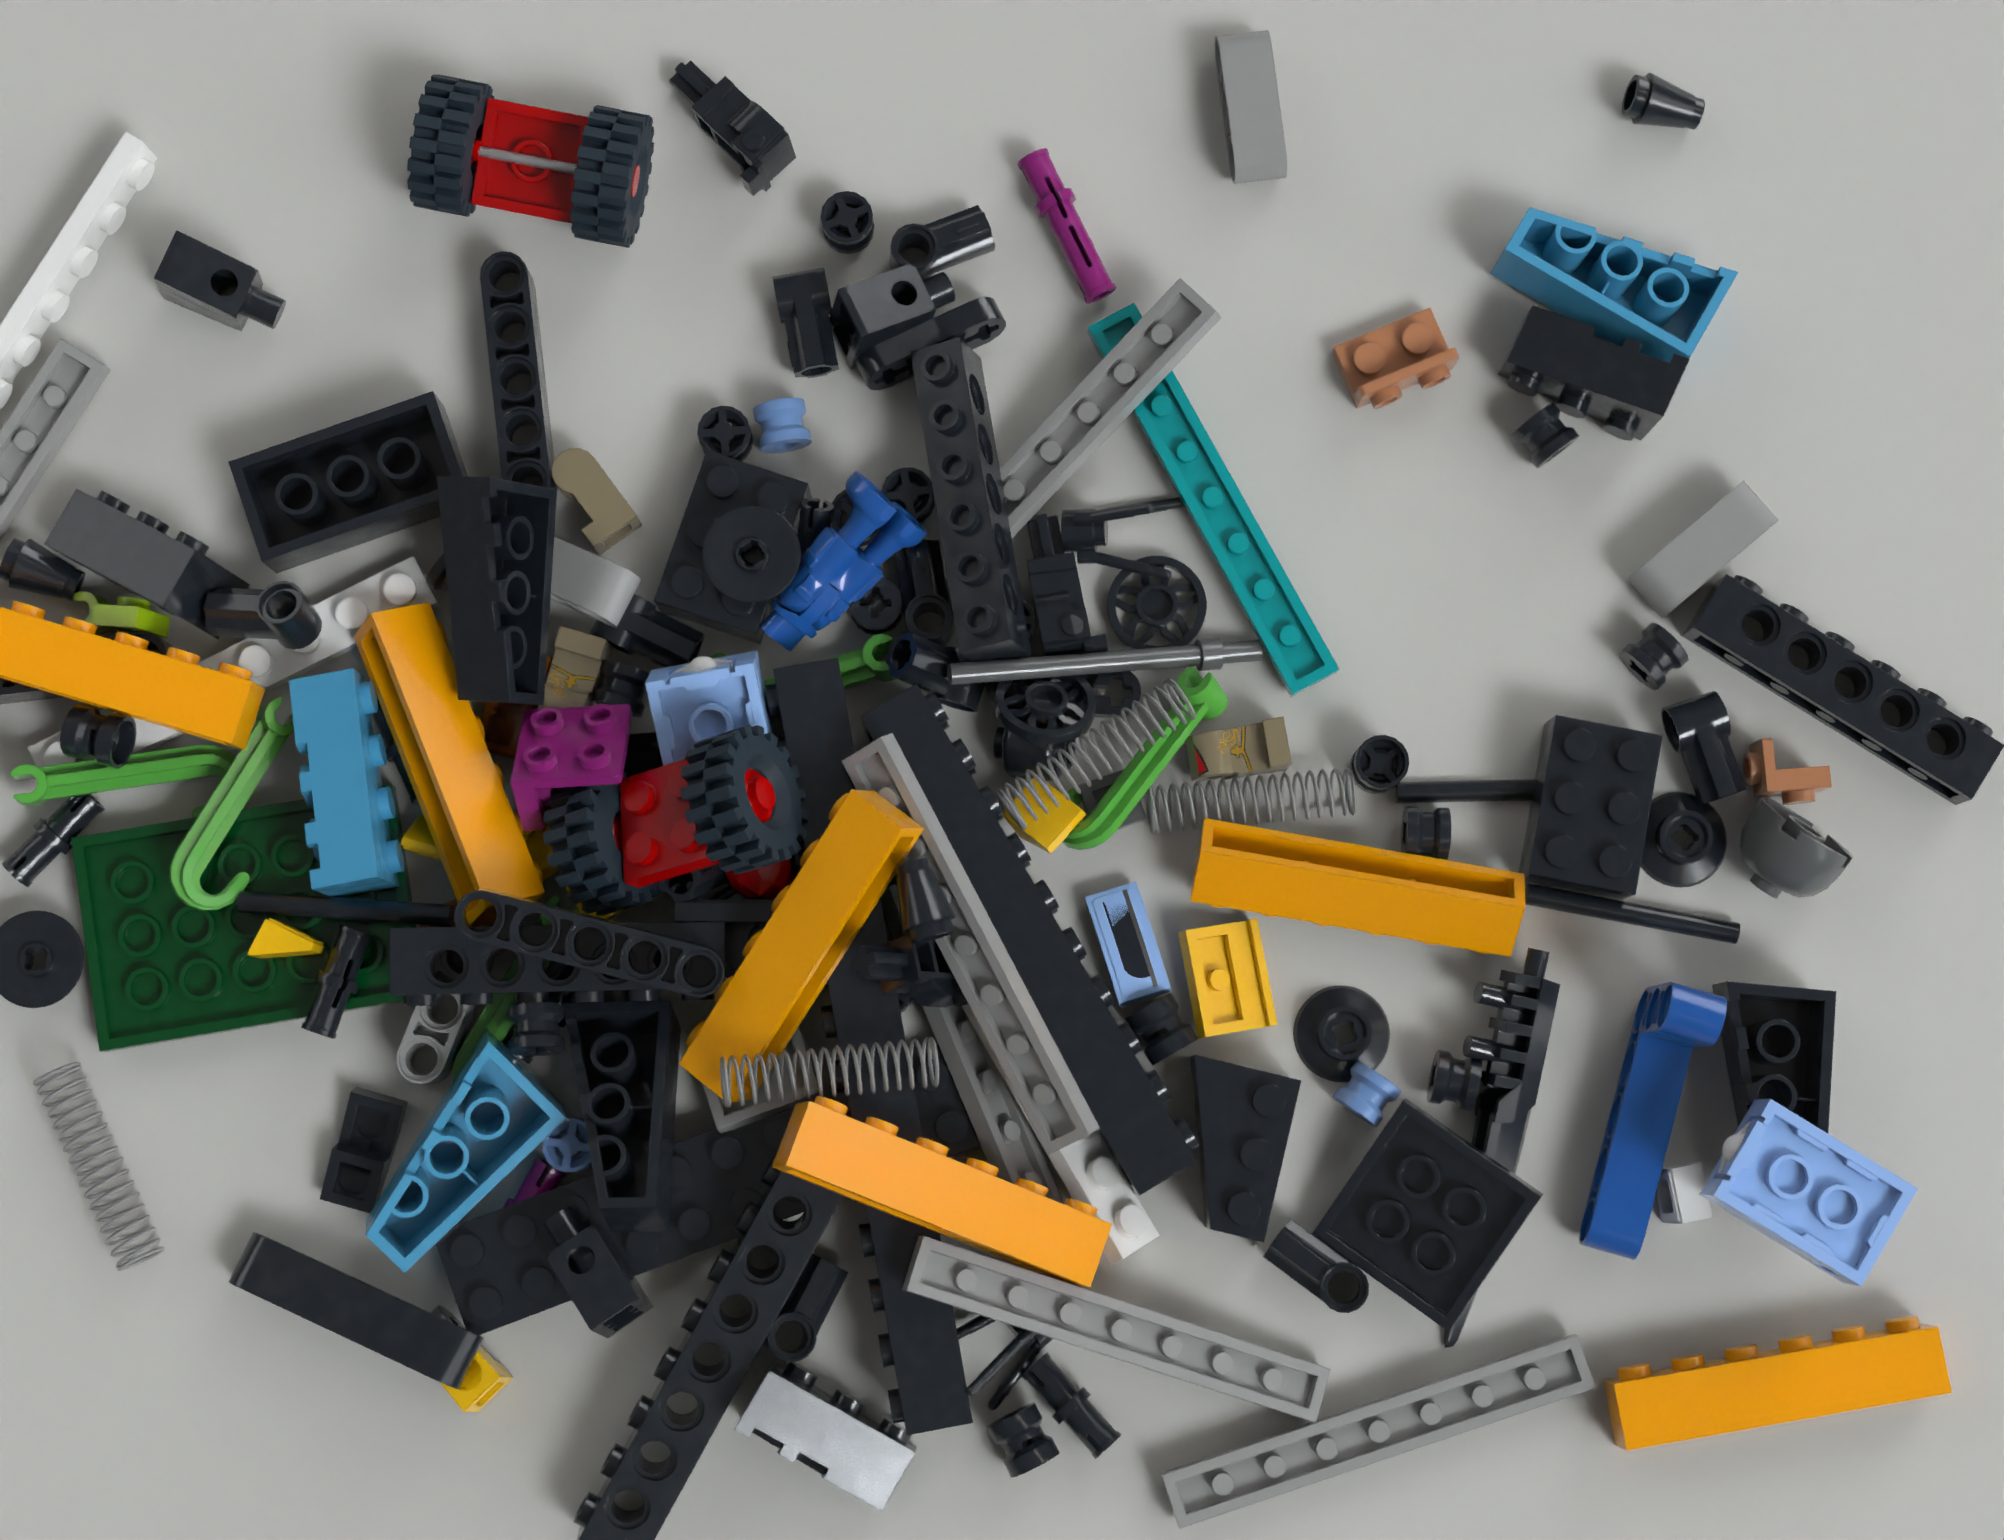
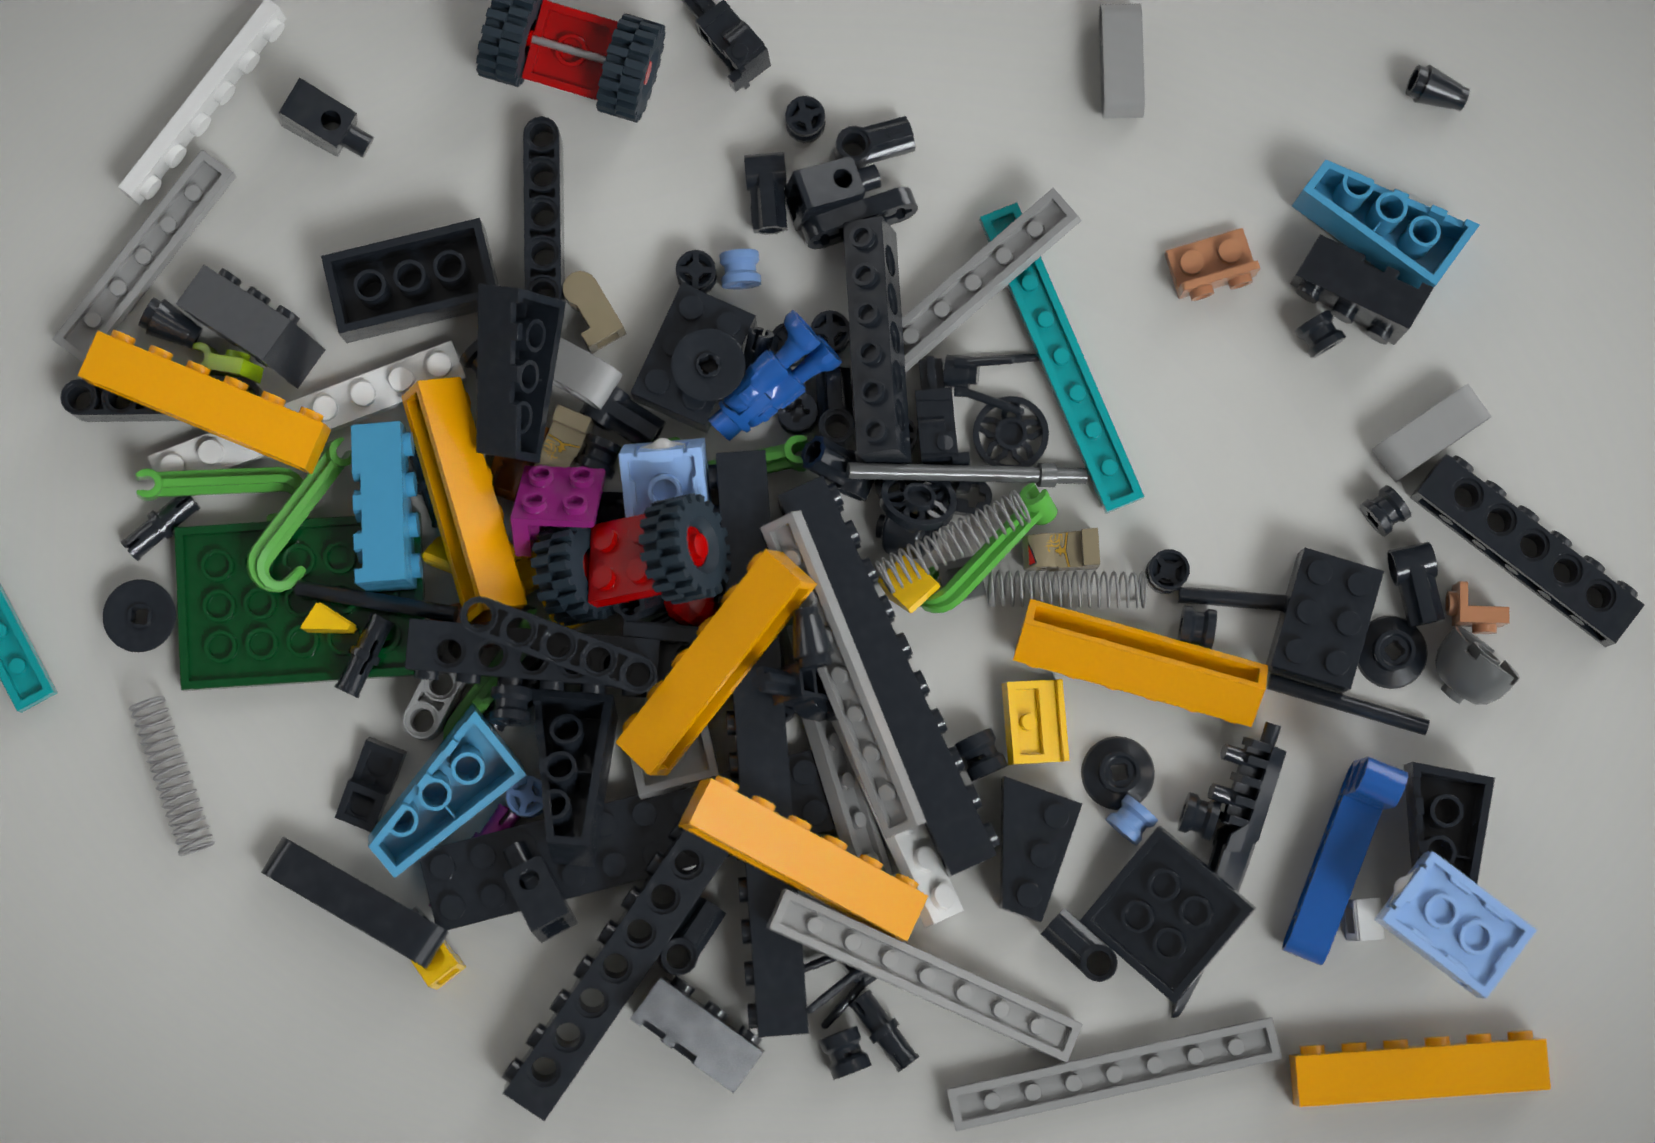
camera: 10 degrees right, 0 degrees up
(99, 736) = (202, 452): black wheel -> none
(271, 613) = (335, 373): black piece -> none
(725, 1070) = (651, 748): light grey piece -> none
(1057, 207) = (966, 124): magenta pin -> none
(1128, 944) = (962, 688): light blue slope -> none

